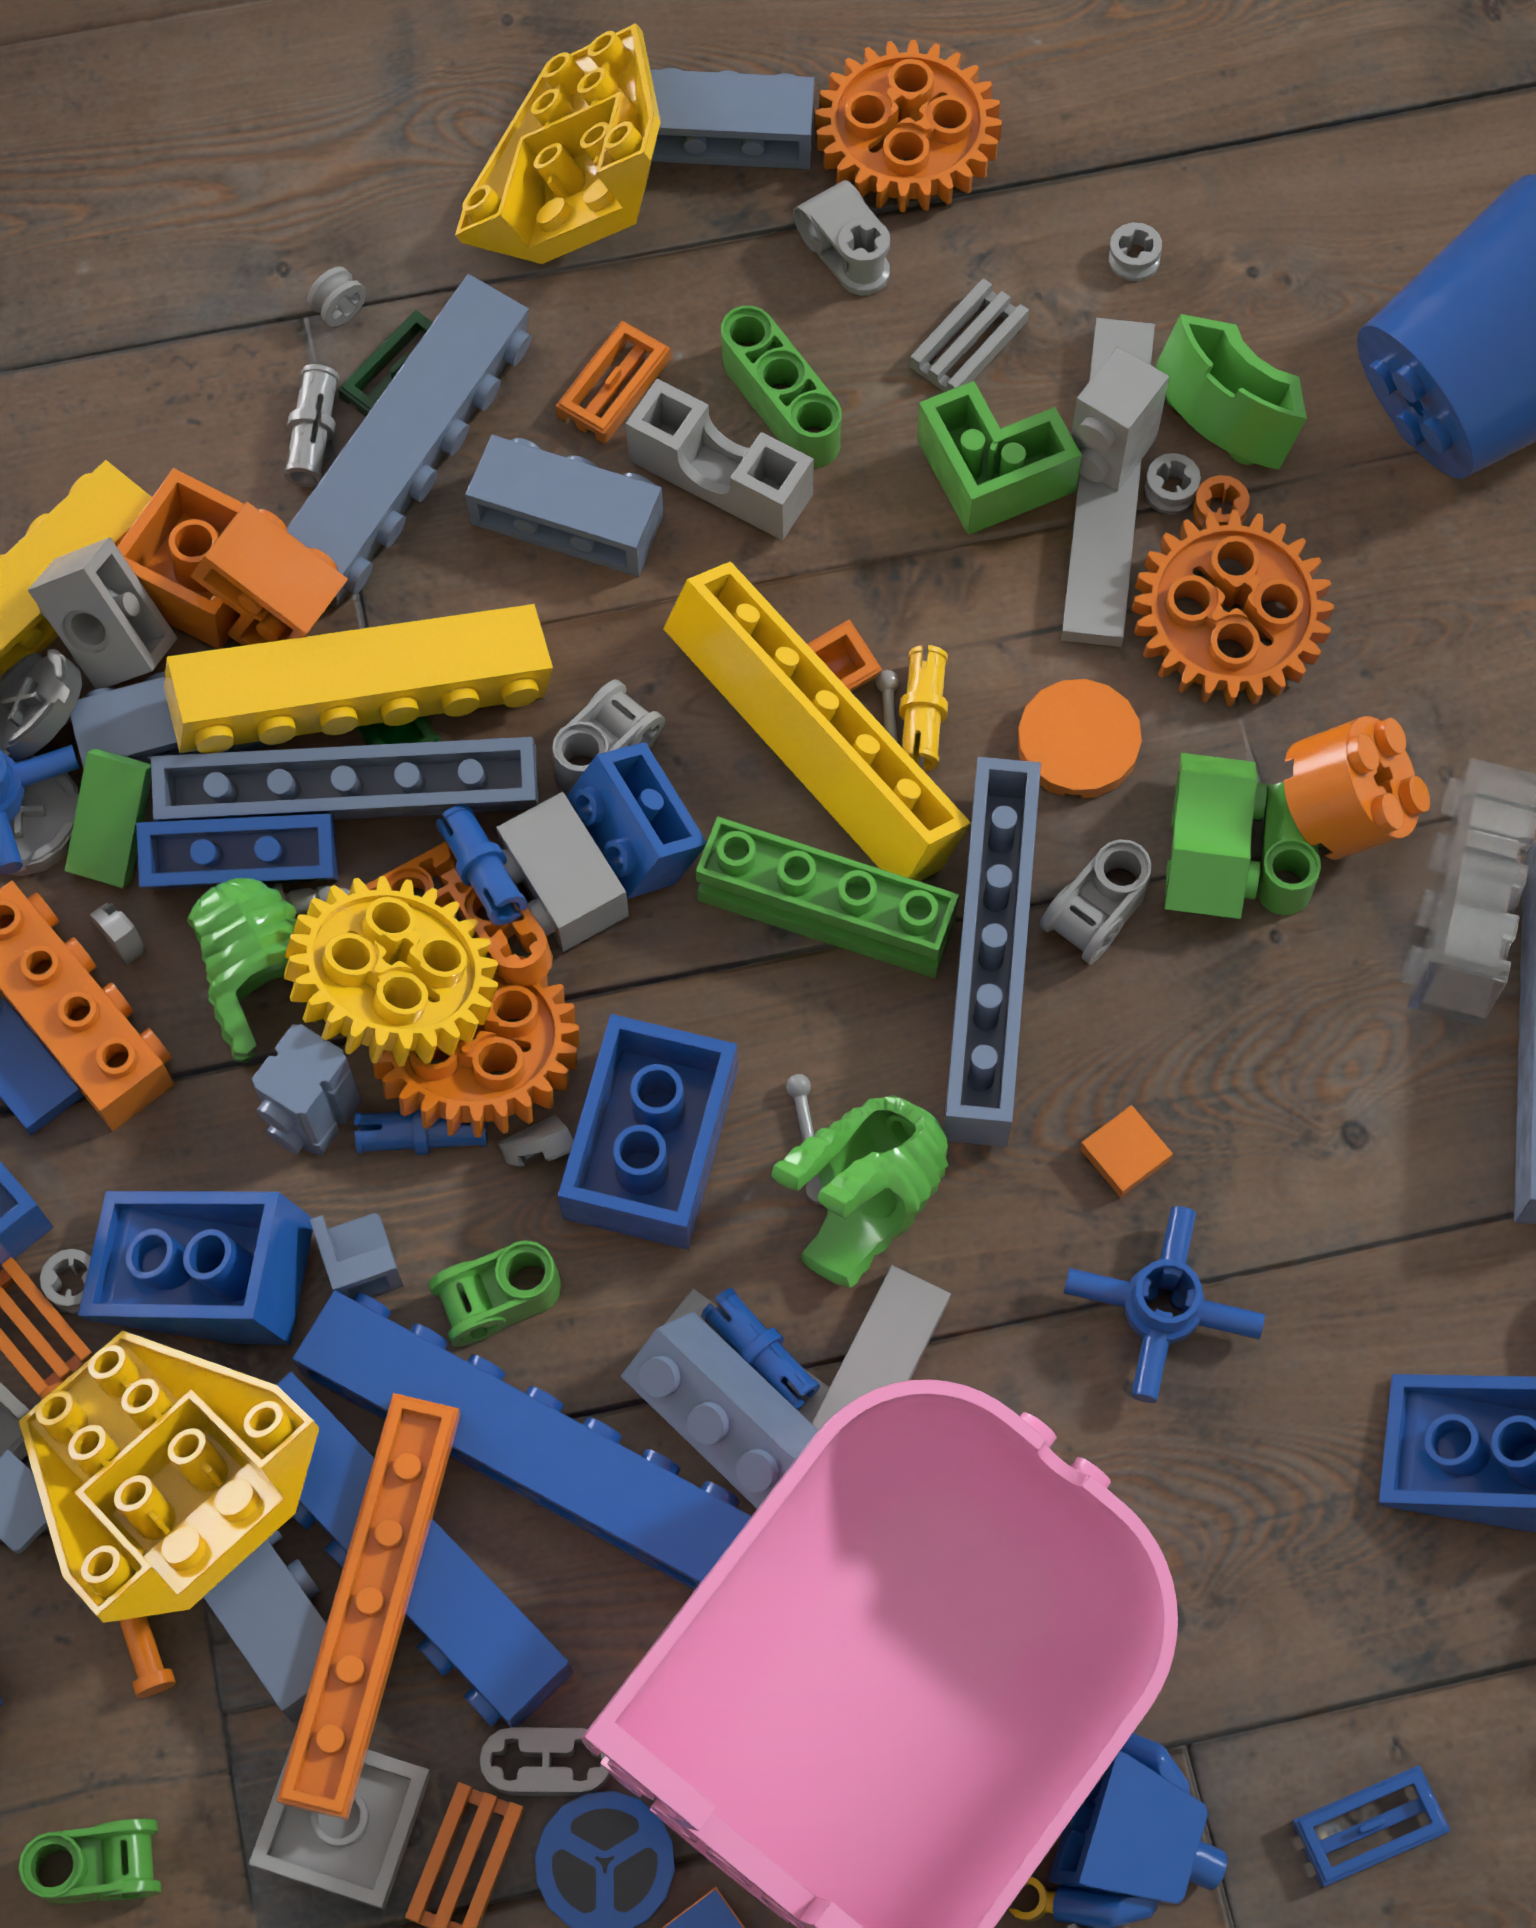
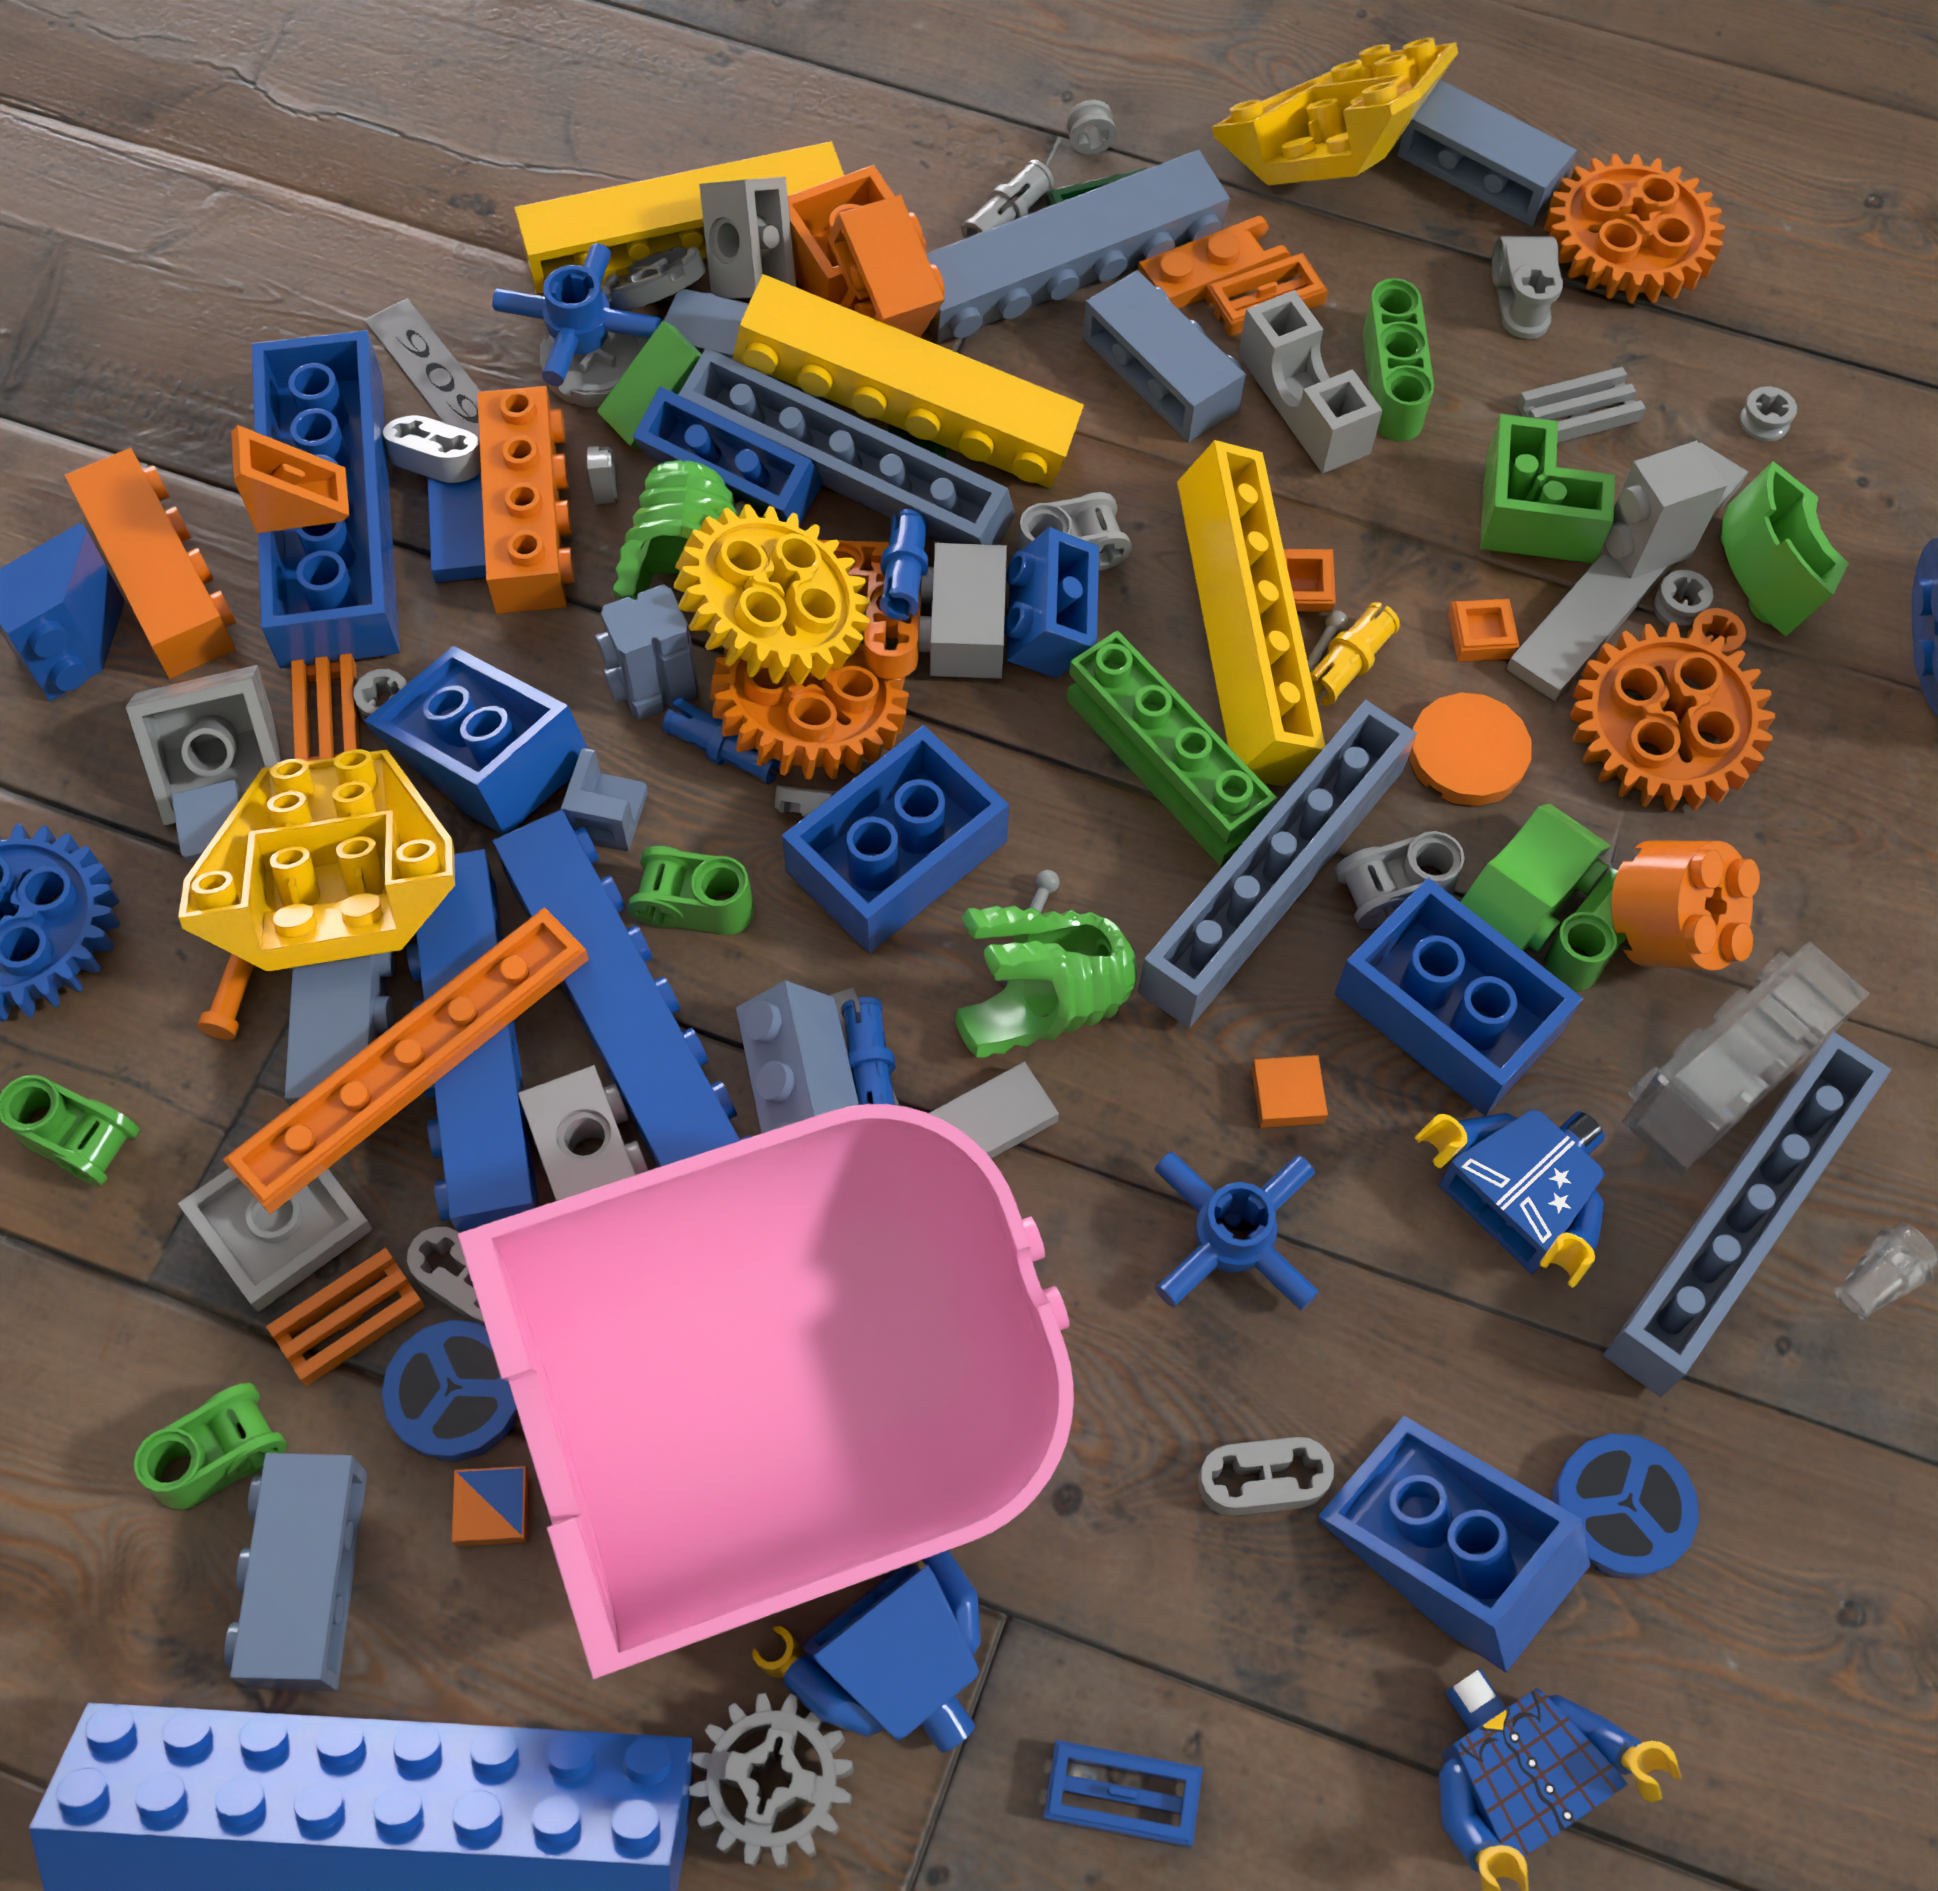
camera: 30 degrees right, 5 degrees down
(540, 378) = (1215, 257): none -> orange hinge
(589, 1619) = (571, 1111): none -> light grey brick
(1019, 614) = (1483, 630): none -> orange tile
(1217, 983) = (1456, 995): none -> blue brick
(1327, 1508) = (1263, 1459): none -> light grey beam
(1374, 1114) = (1526, 1183): none -> blue torso

